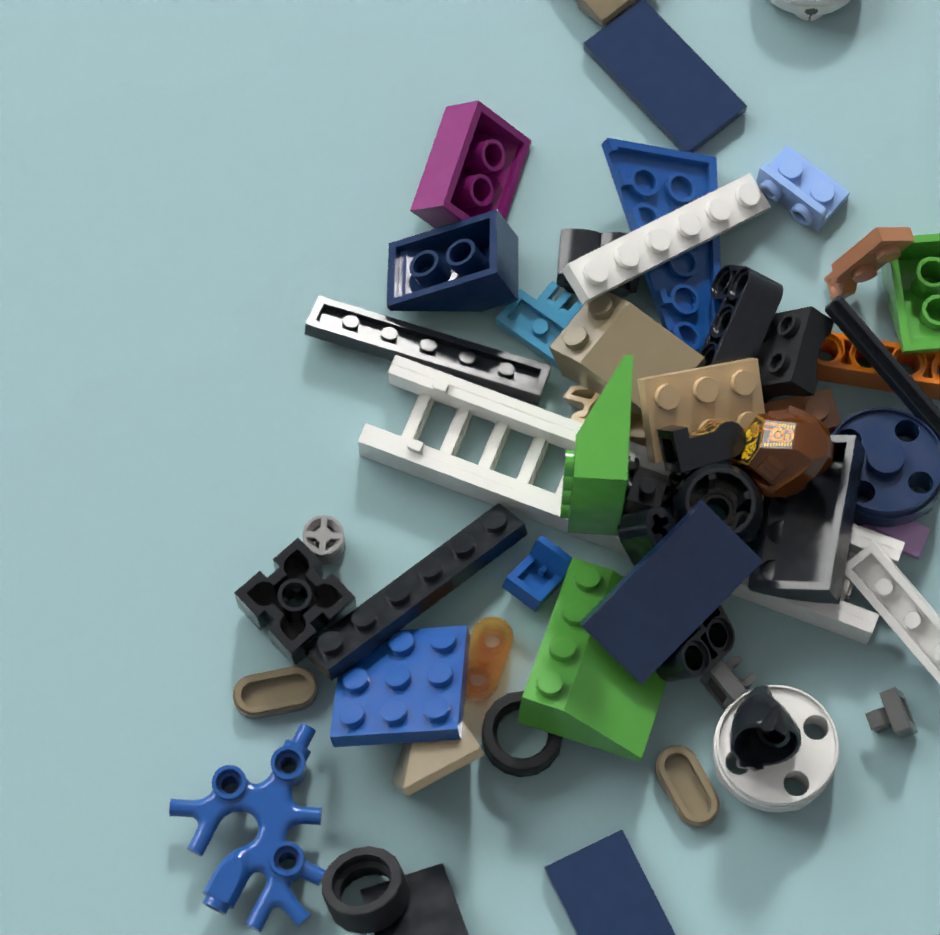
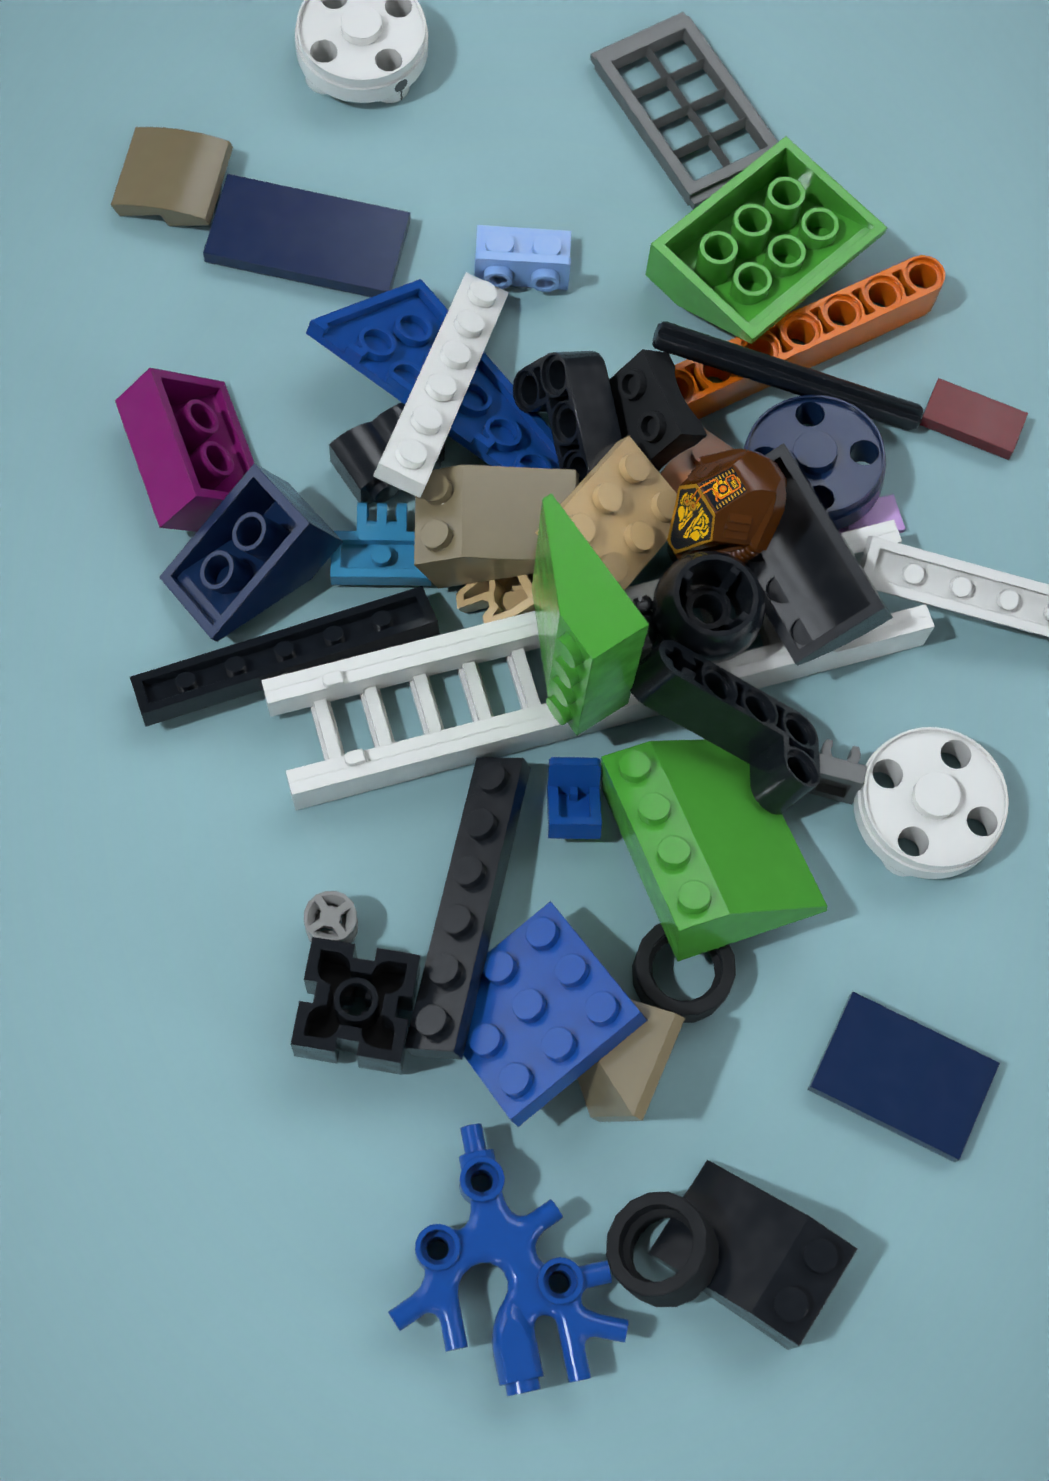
camera: 45 degrees left, 0 degrees up
(275, 692) = (402, 1115): dark tan tile -> none
(488, 660) = (593, 921): clear orange plate -> none
(671, 591) = (736, 718): dark blue tile -> none
(687, 786) = (875, 902): dark tan tile -> none
(695, 449) = (651, 554): black leg -> none
(750, 731) = (923, 790): black hat -> none
(866, 258) = (646, 280): nougat hinge -> none
(893, 715) = (1008, 689): dark grey tile -> none

